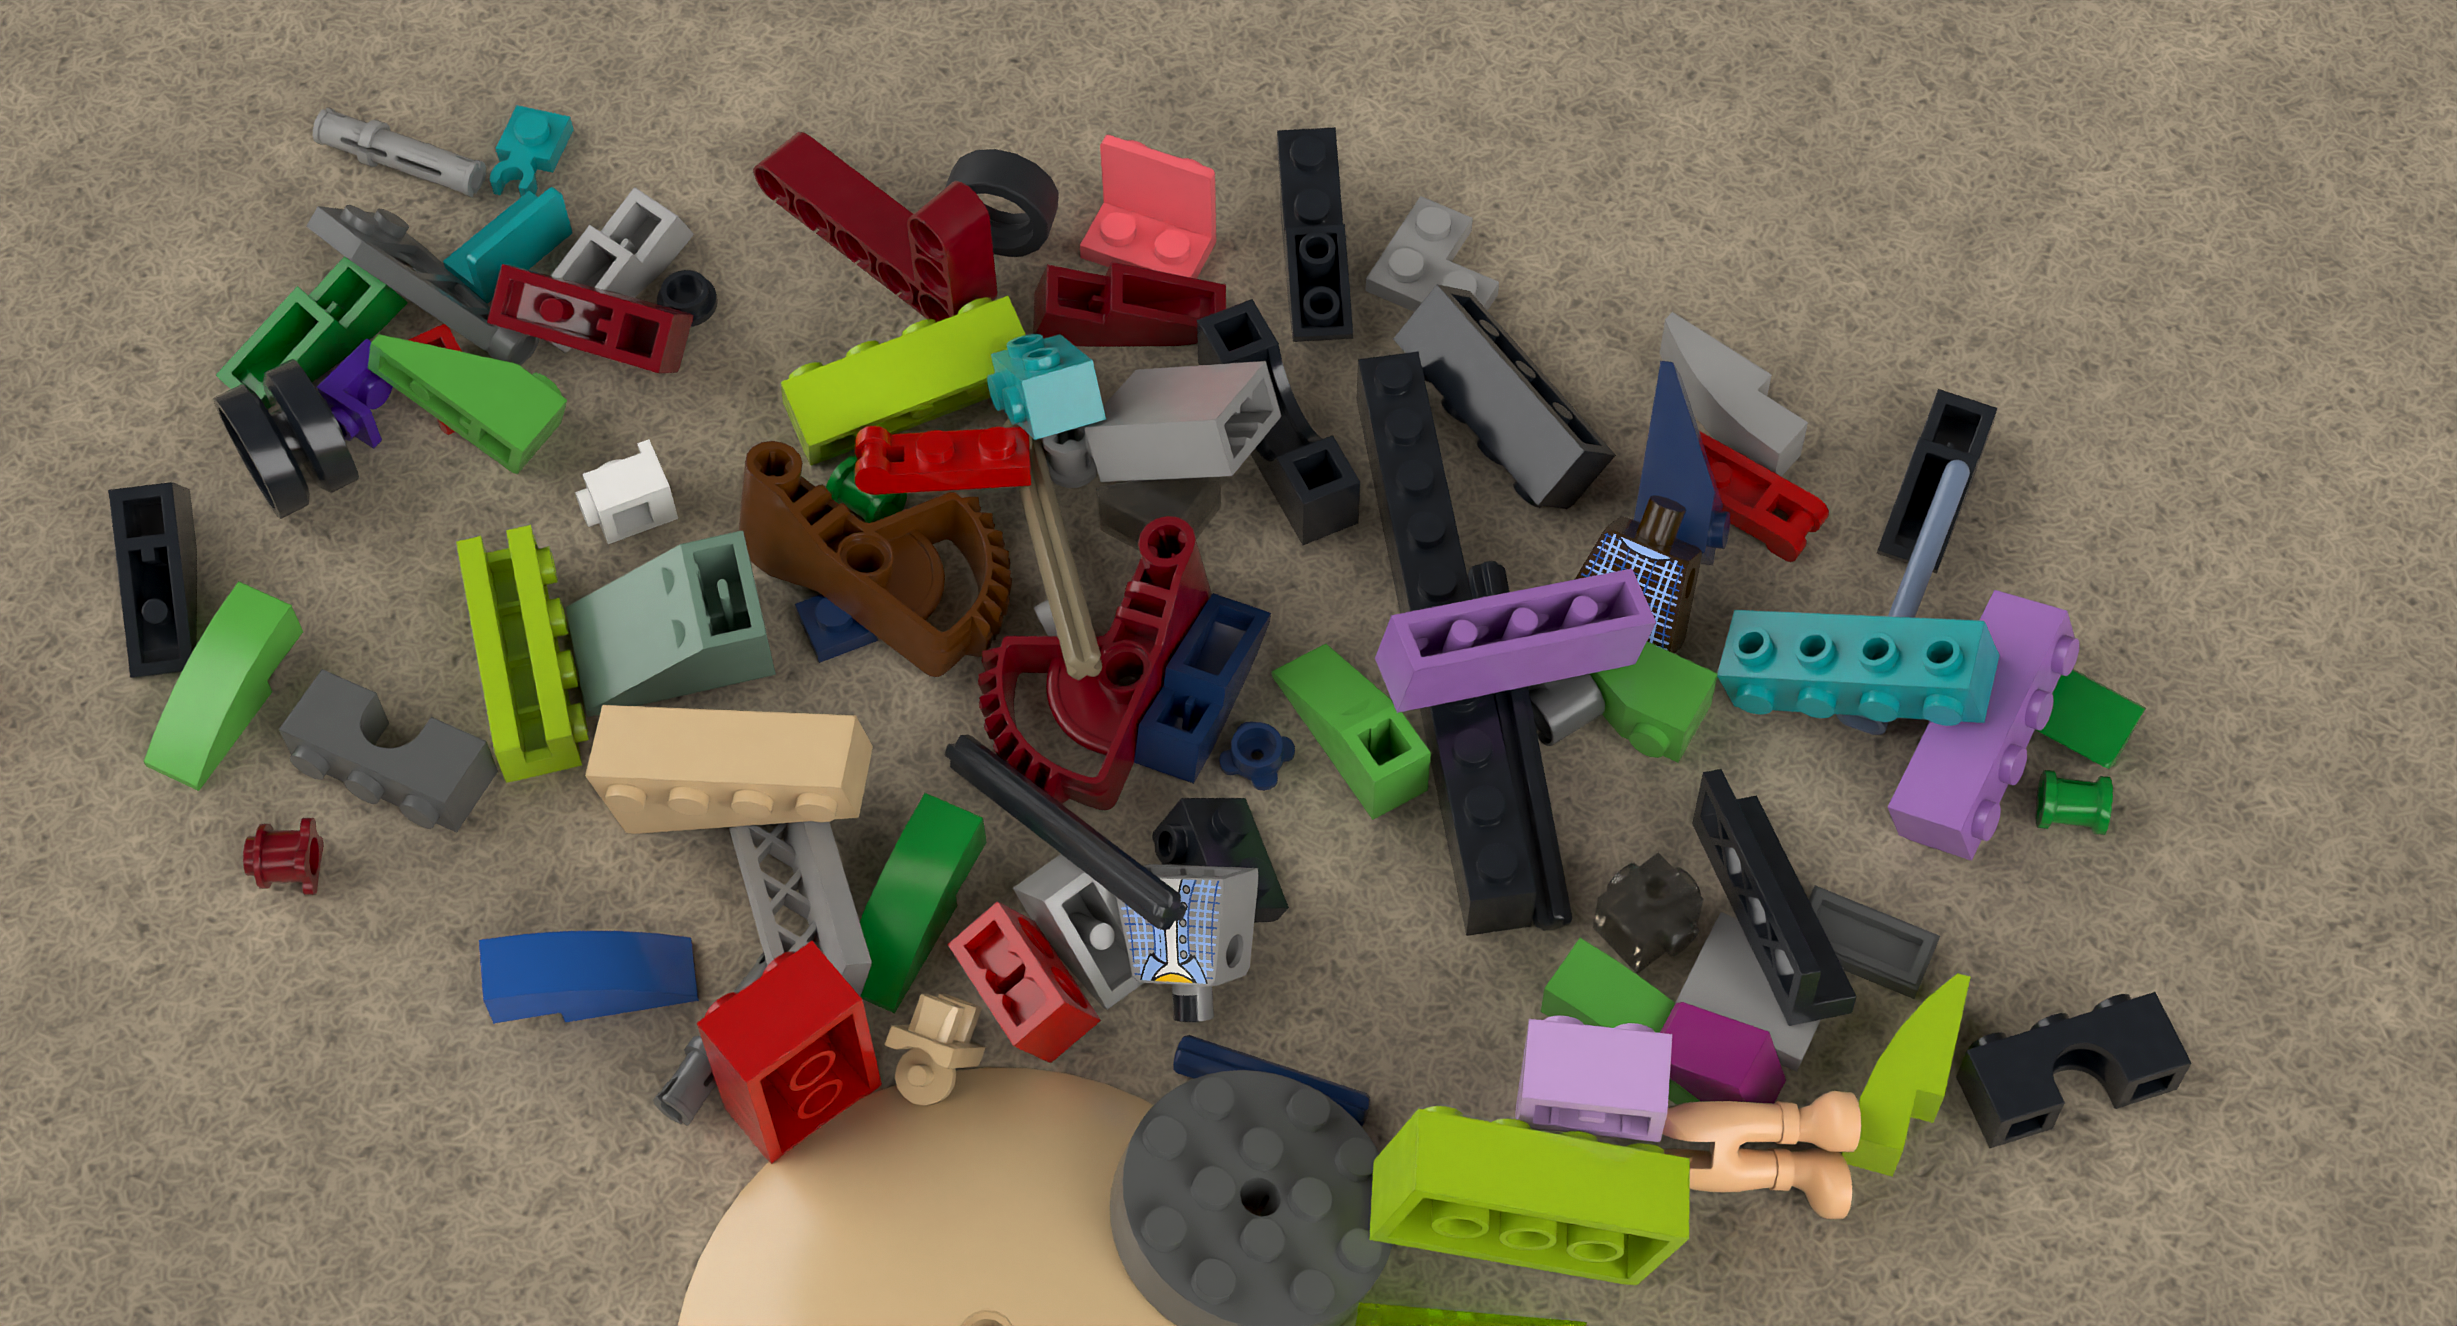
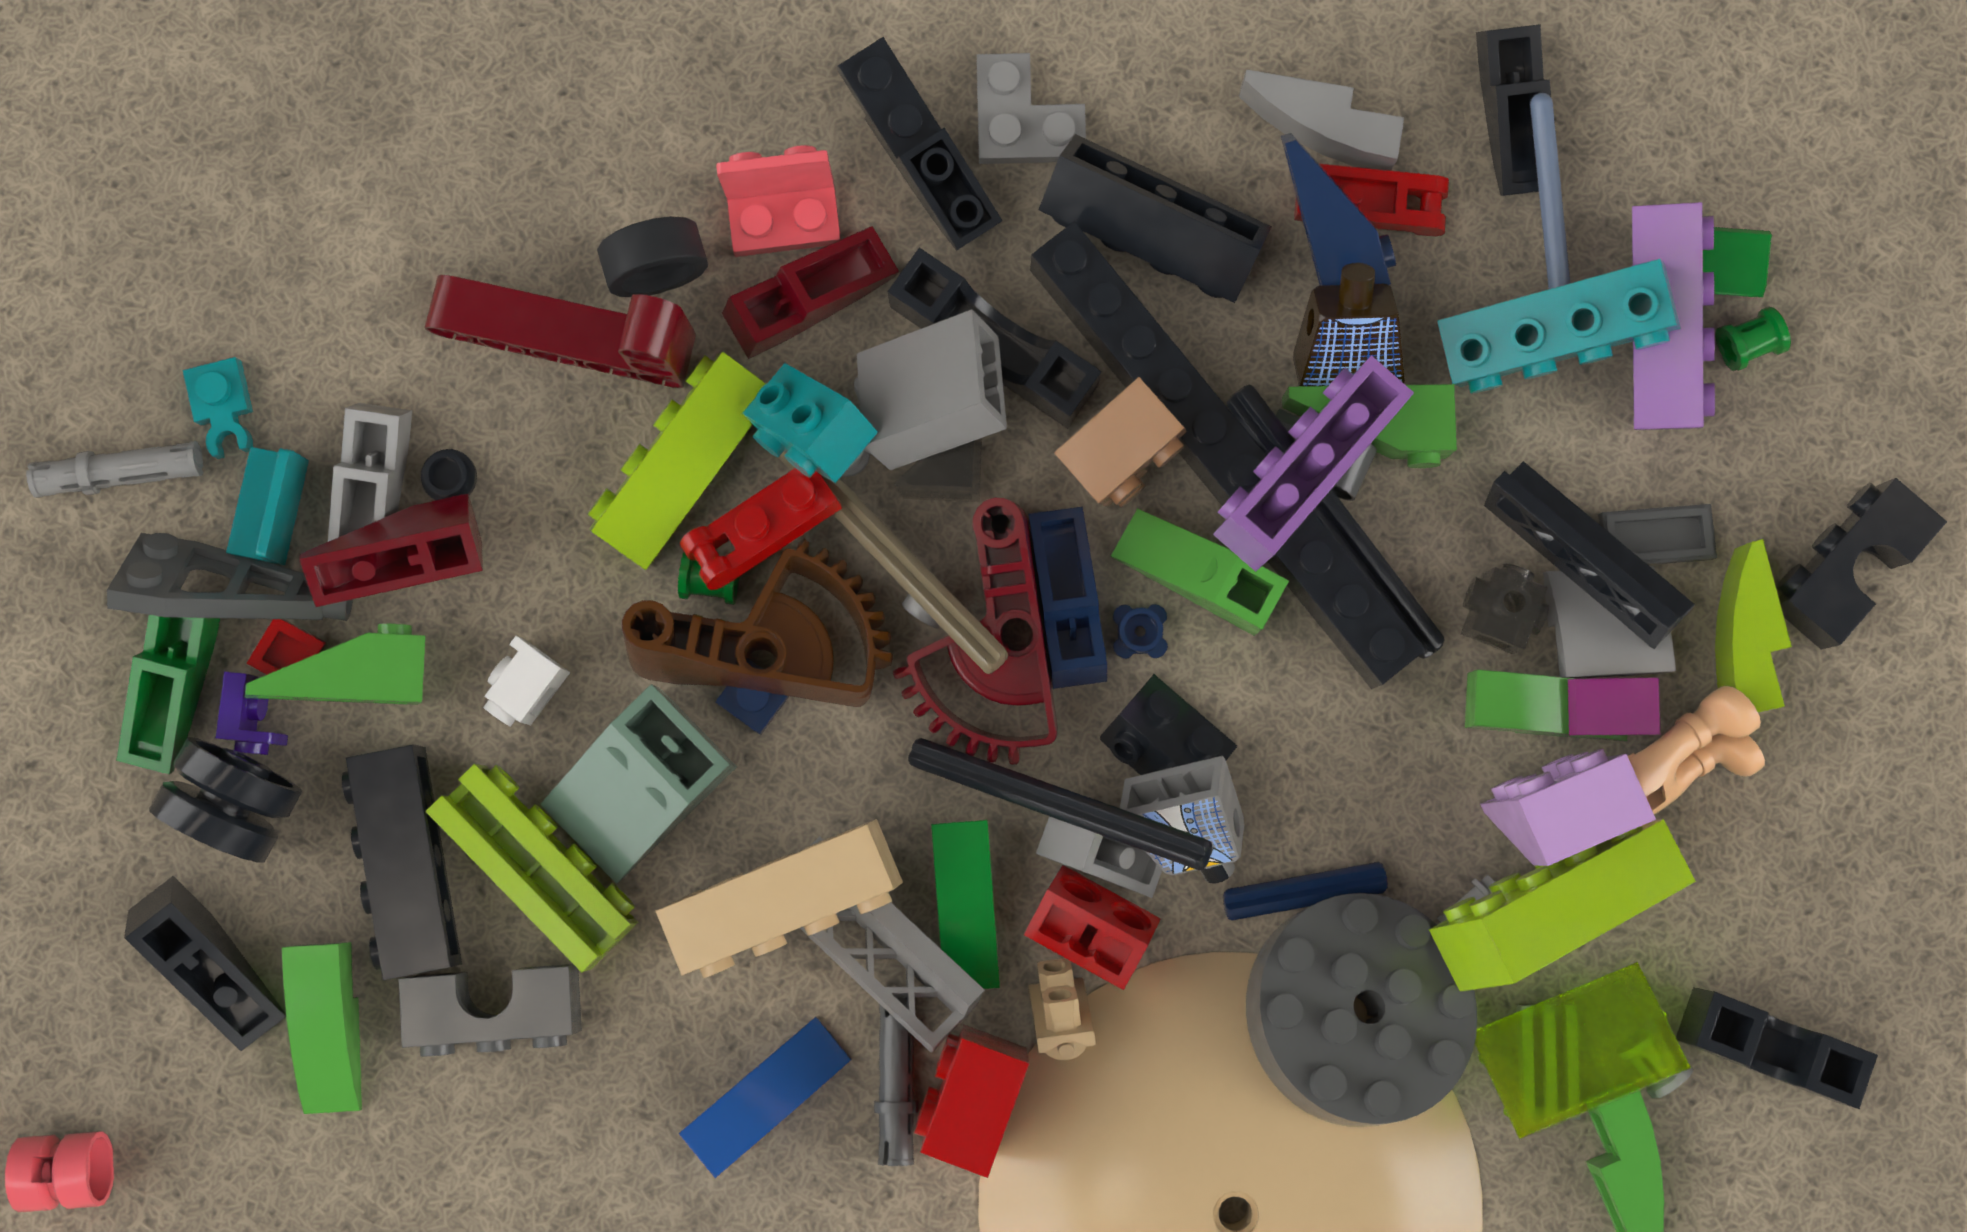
camera: 30 degrees left, 25 degrees up
(285, 856) = (472, 1134): dark red brick -> none
(403, 582) = (401, 862): none -> black brick
(1333, 547) = (1120, 443): none -> medium nougat brick

